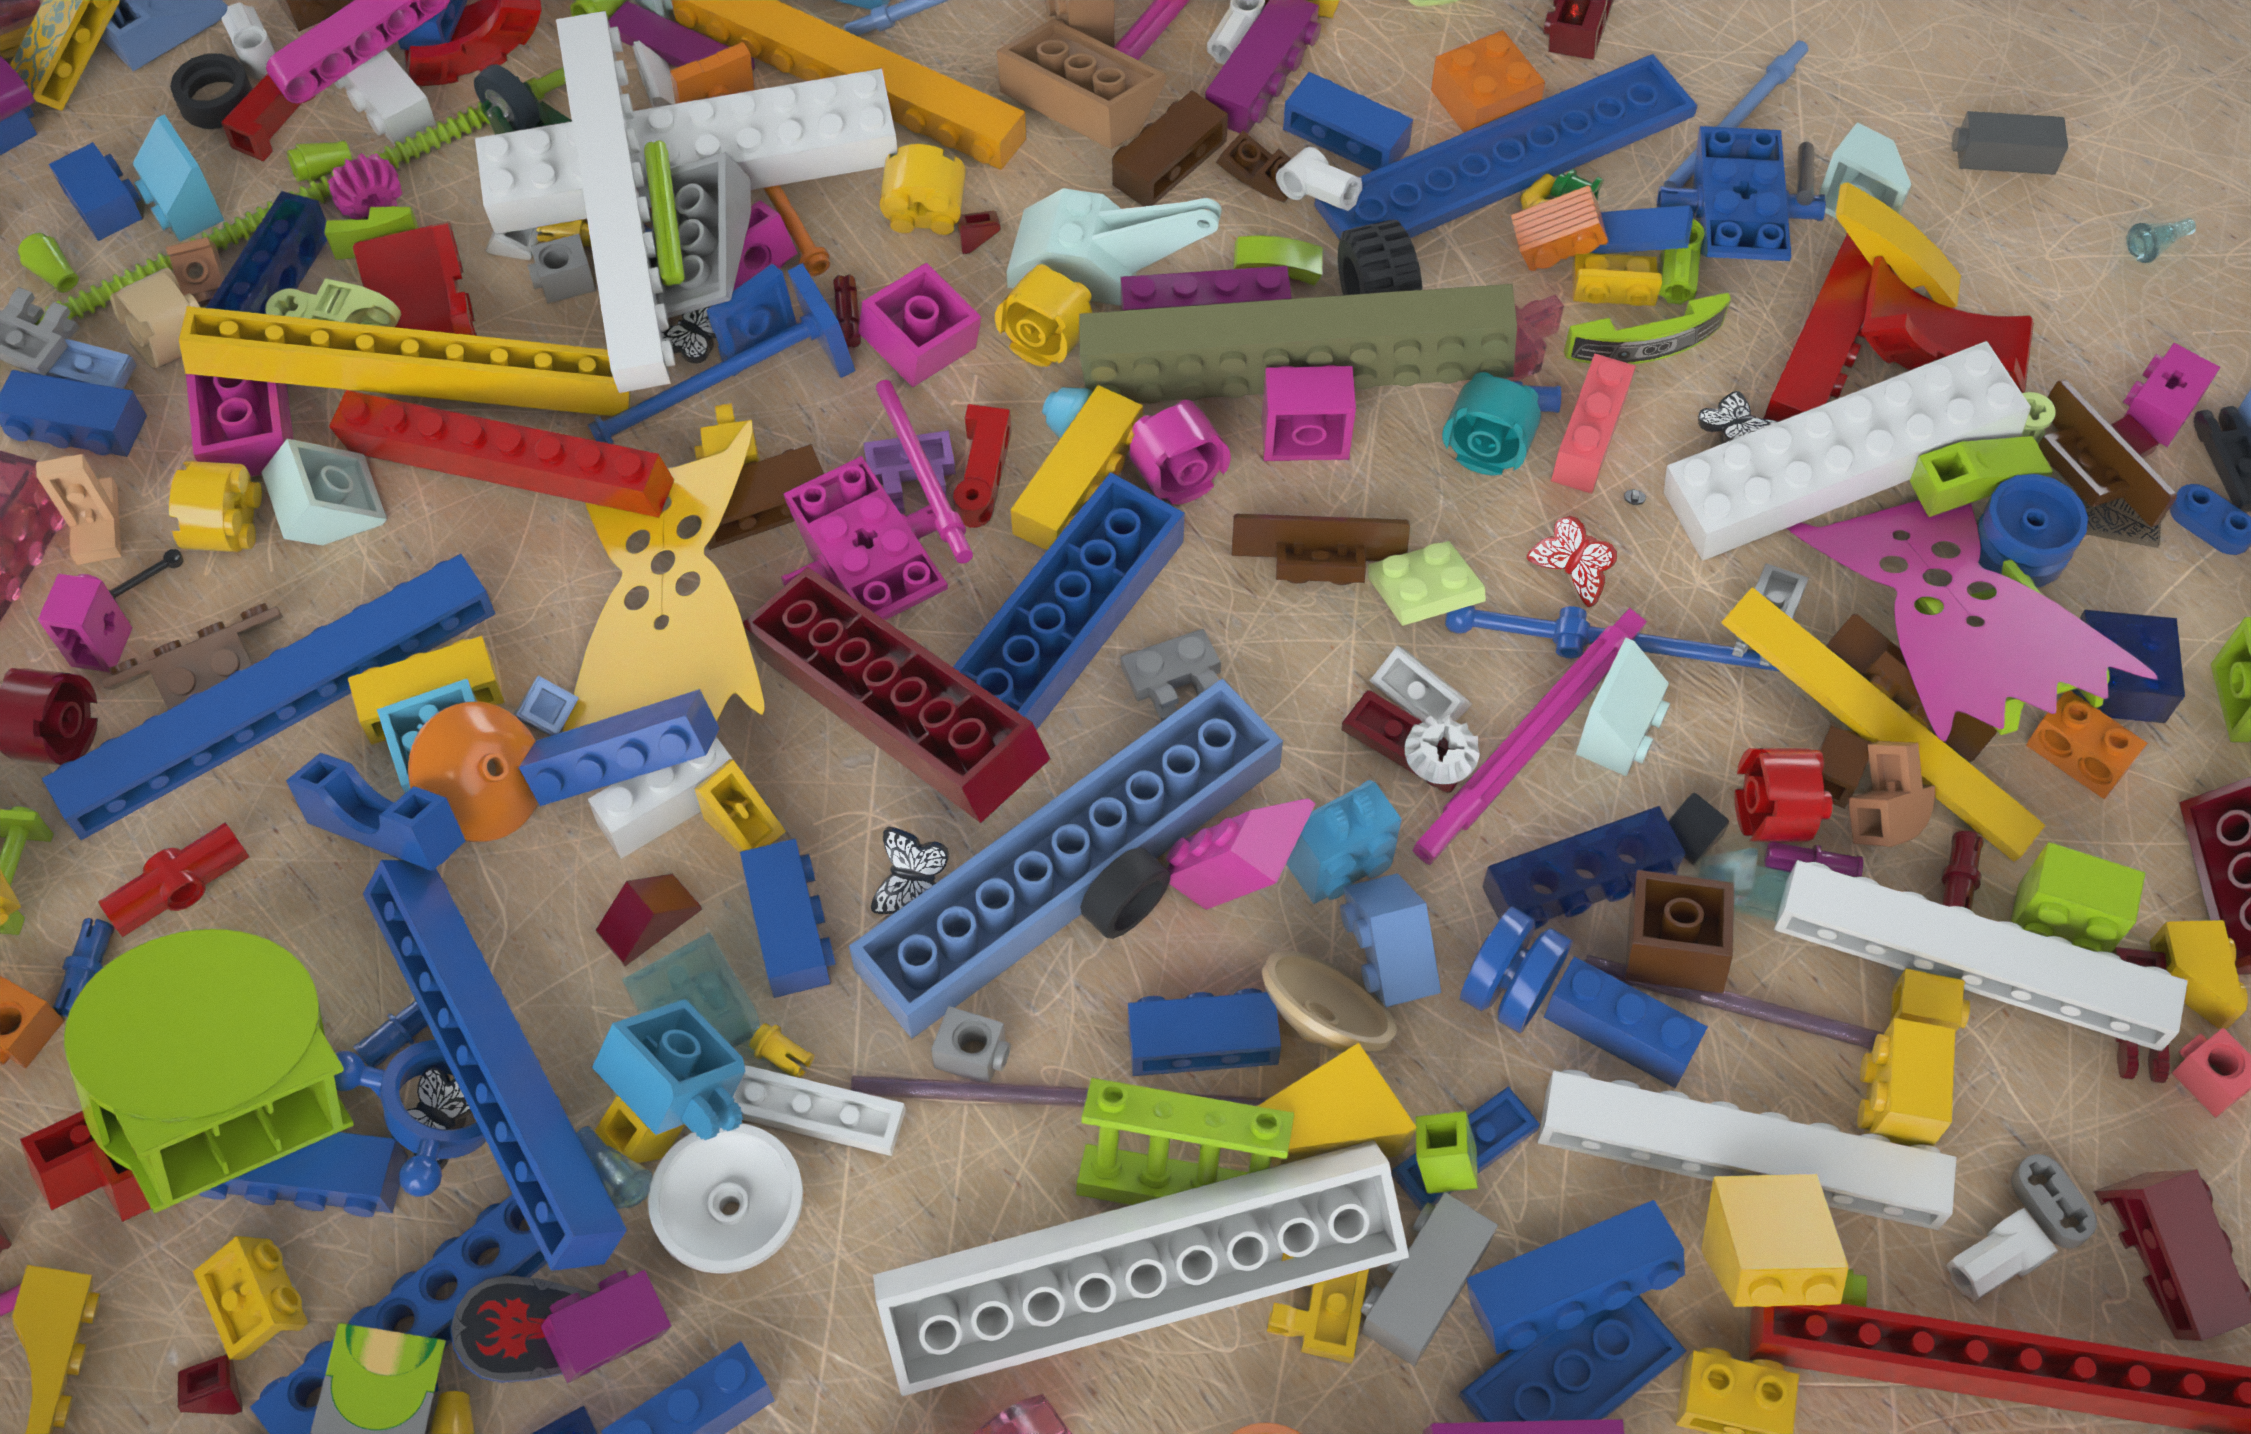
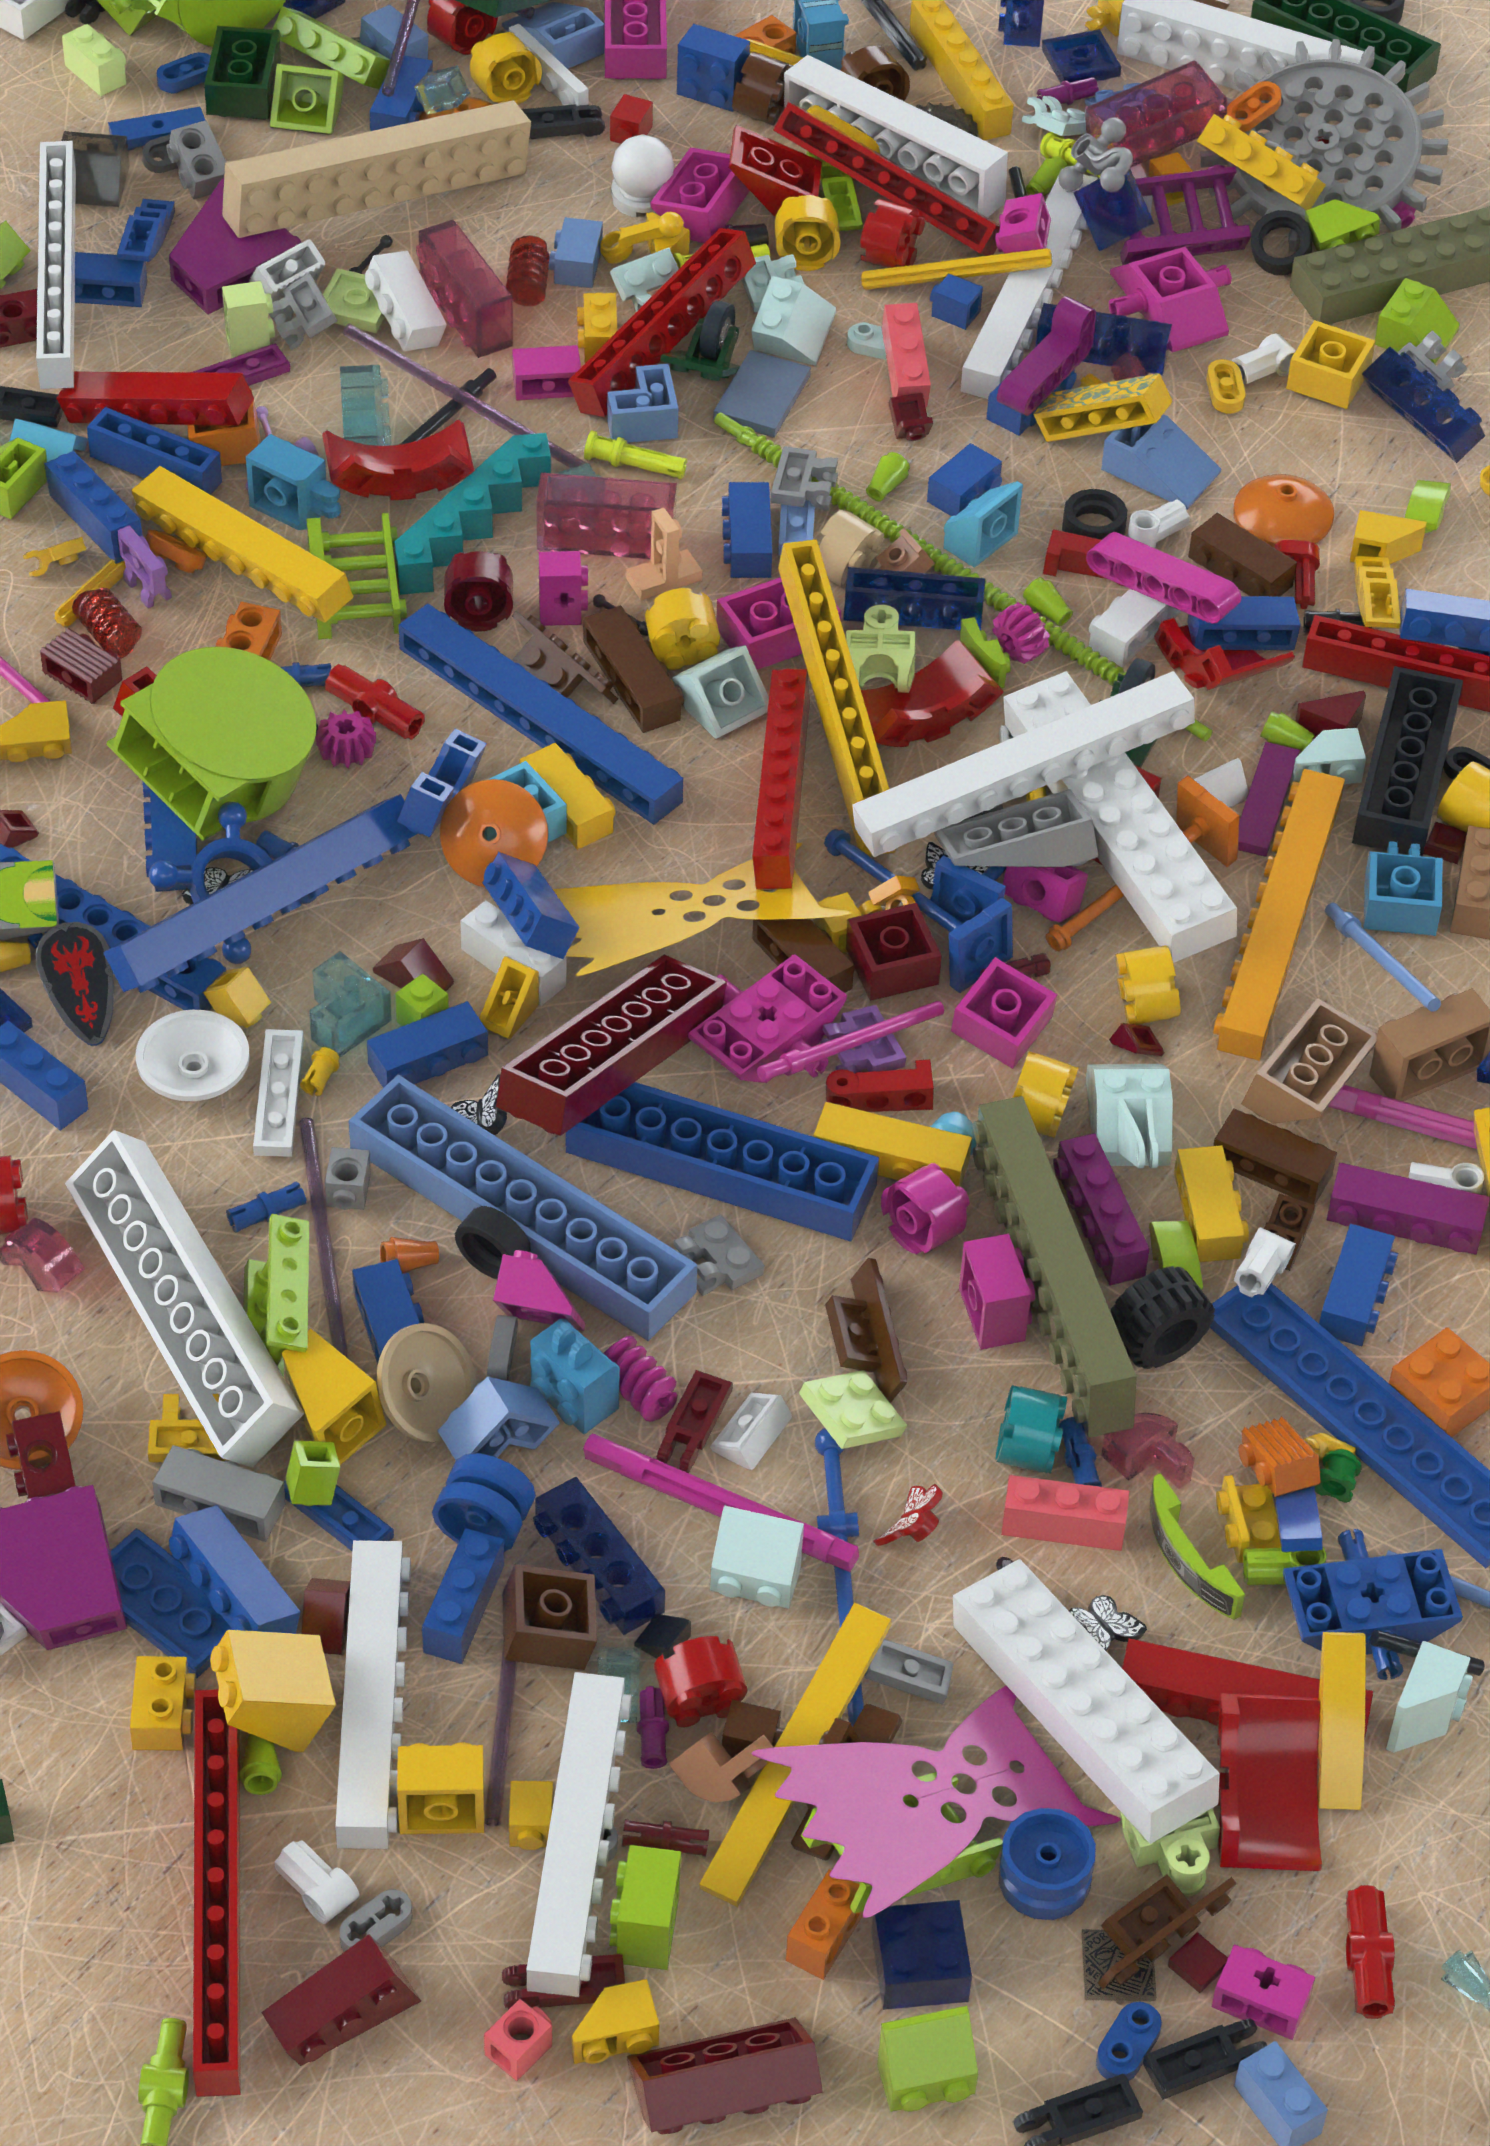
camera: 75 degrees right, 10 degrees down
(230, 911) = (346, 738): none -> dark pink gear
(237, 578) = (632, 668): none -> reddish brown brick
(249, 1295) = (79, 829): yellow bracket -> none
(545, 706) = (572, 869): light blue slope -> none
(605, 1324) = (86, 1010): magenta brick -> none
(621, 1176) = (187, 986): clear light blue cone -> none
(664, 213) = (1025, 801): lime axle -> none
(673, 1070) = (271, 990): dark azure hinge -> none
(720, 380) = (894, 892): none -> light orange tile
(721, 909) = (419, 1000): none -> lime brick
(797, 404) = (893, 951): none -> dark red brick
(983, 1153) = (265, 1205): none -> blue pin
(1102, 1000) = (409, 1252): none -> orange cone
(1244, 208) = (1210, 1202): none -> yellow brick
(1270, 919) = (502, 1347): none -> light grey beam
(1342, 774) = (641, 1380): none -> dark pink piece
(1423, 755) = (666, 1441): white gear -> none
(1613, 1178) = (326, 1612): none -> dark red slope
(1973, 471) = (1084, 1791): lime slope -> none
(2126, 303) = (1370, 1952): none -> red piece

